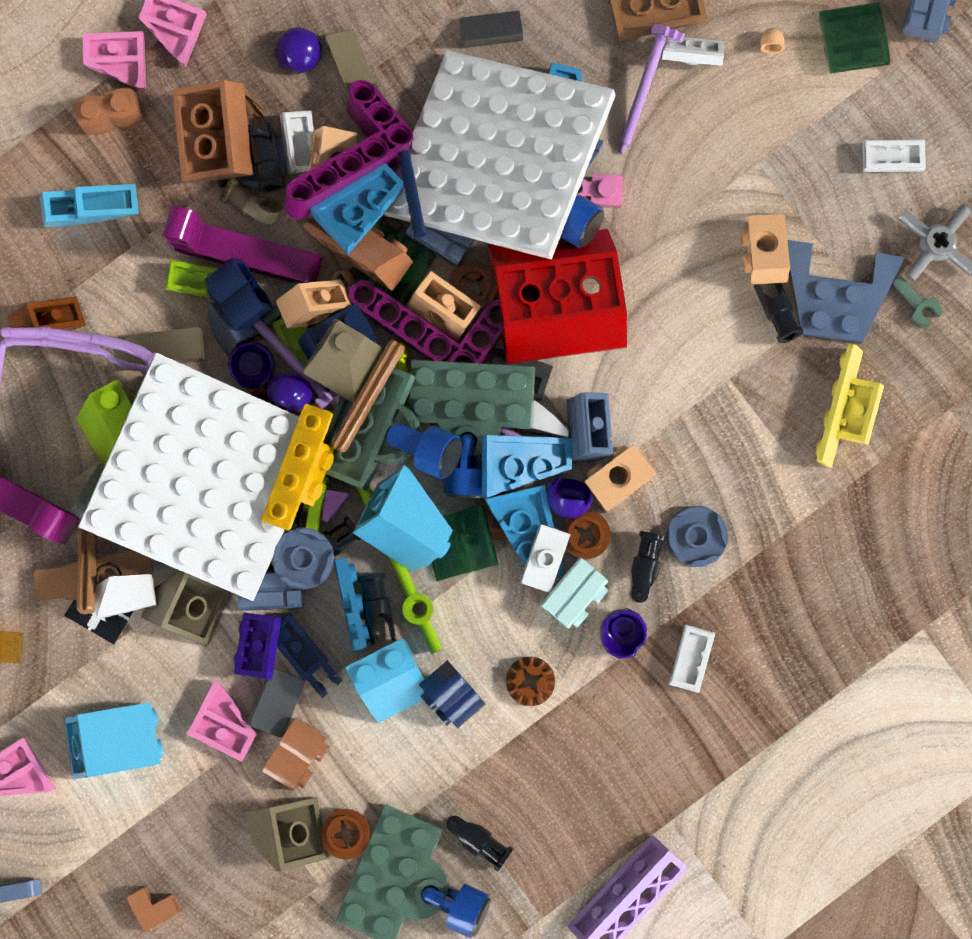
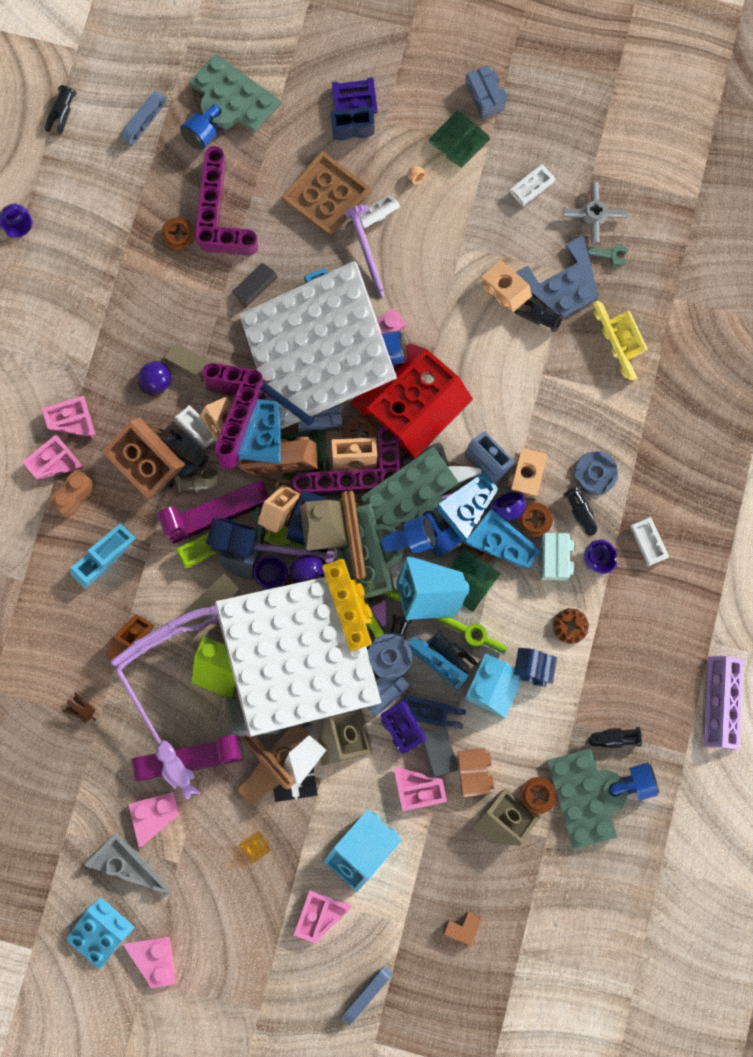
camera: 45 degrees left, 5 degrees down
(545, 558) = (524, 549): white plate -> none

